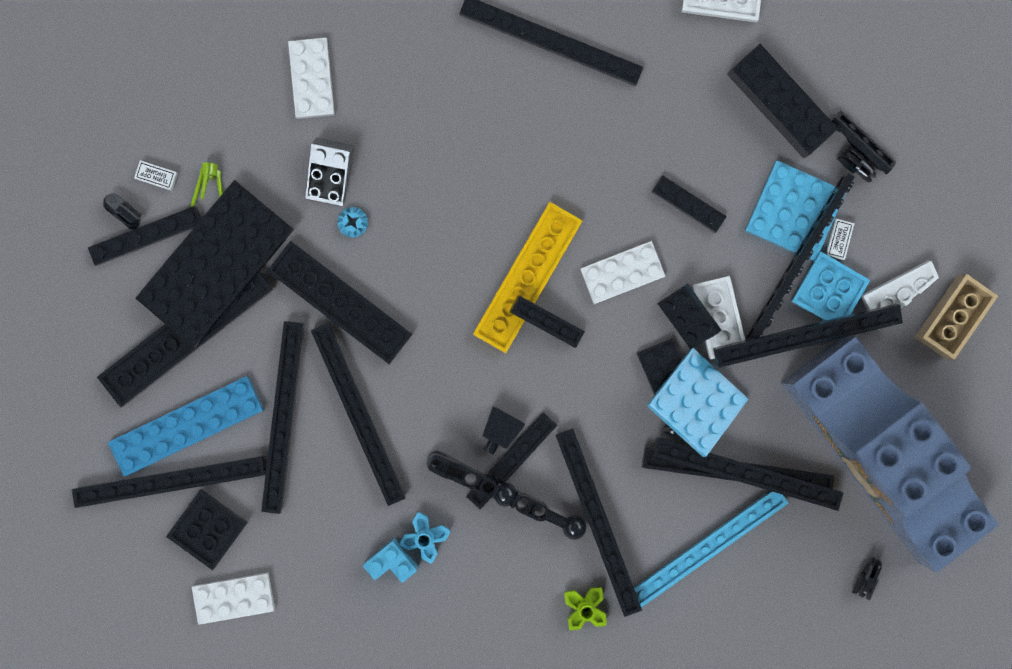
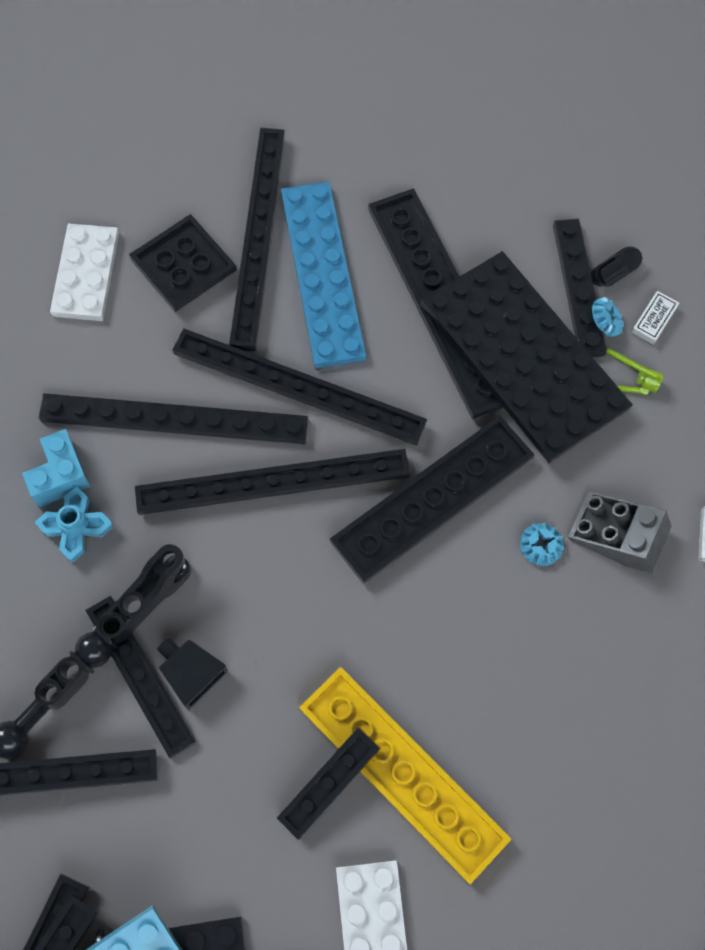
camera: 100 degrees right, 20 degrees down
(172, 210) = (607, 317): none -> medium azure gear
(330, 496) = (173, 418): none -> black plate

